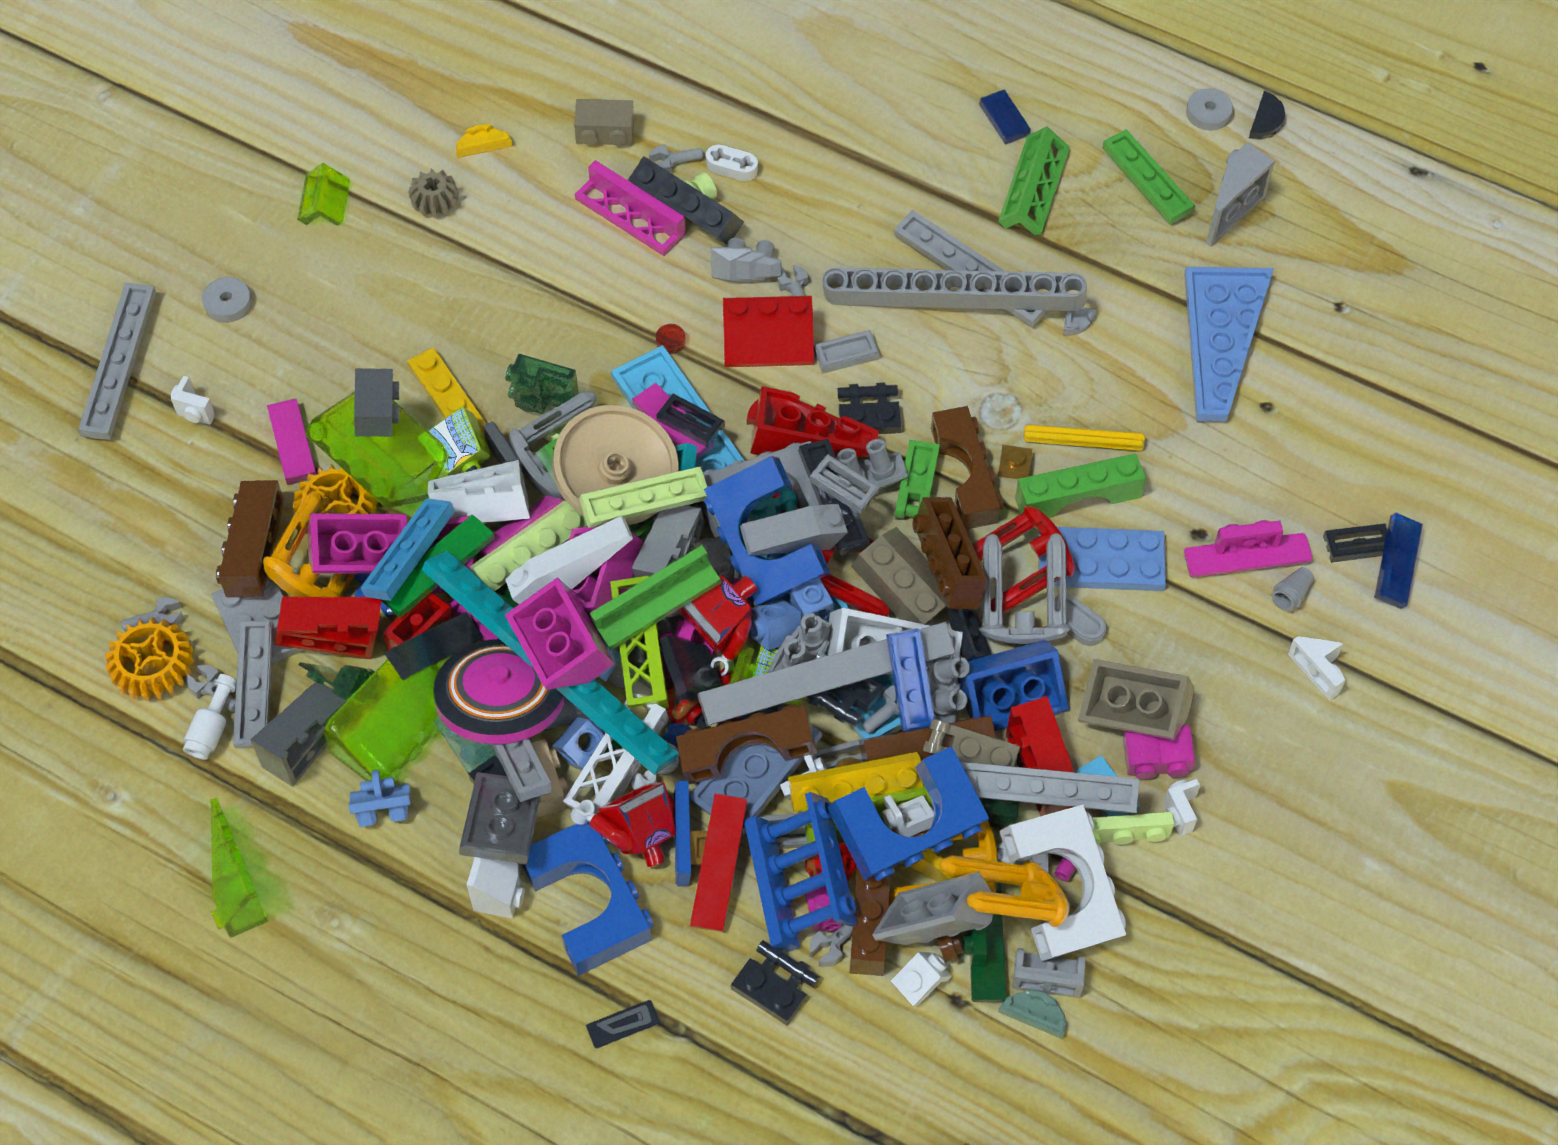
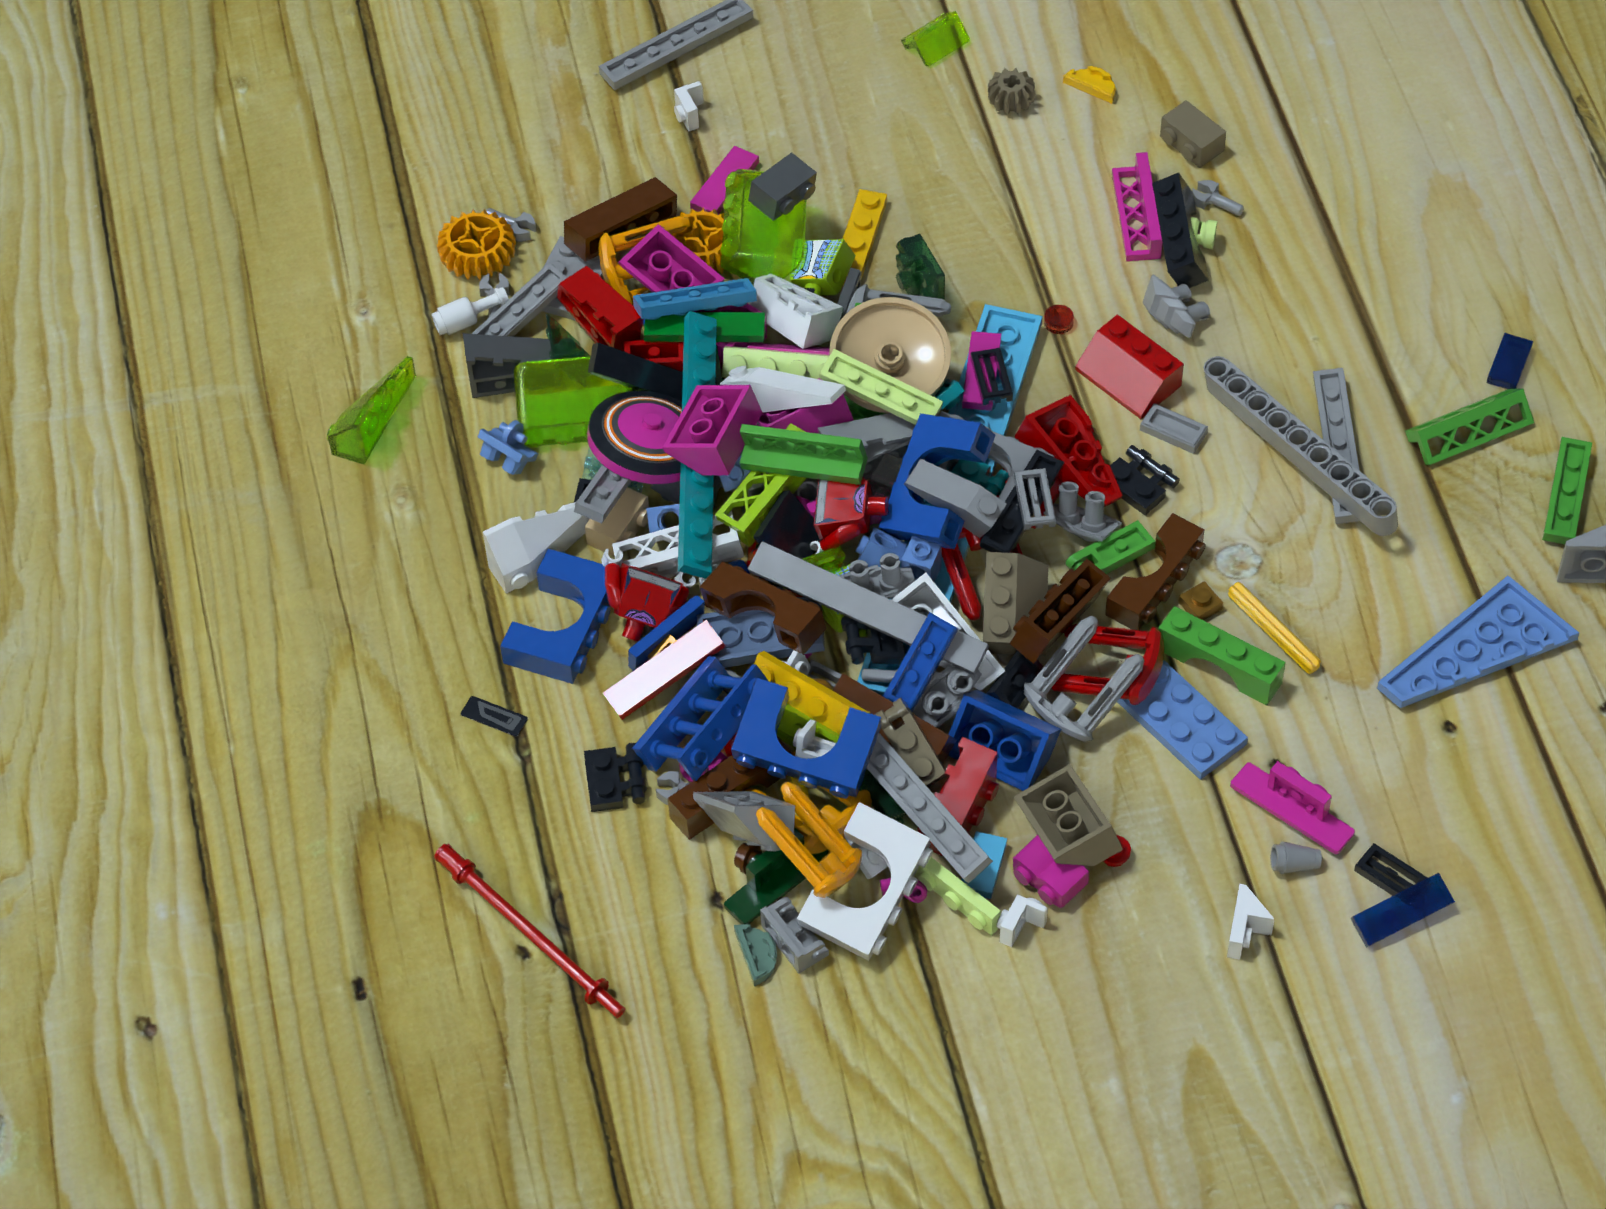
camera: 50 degrees right, 5 degrees down
(231, 310) = (792, 57): light grey piece -> none
(498, 822) = (548, 514): flat silver tile -> none
(731, 163) = (1259, 231): white beam -> none
(794, 287) = (1192, 355): light grey bar -> none
(921, 976) = (707, 858): white bracket -> none
(1078, 321) = (1377, 547): light grey tile -> none
(1085, 624) = (1109, 743): light grey tile -> none

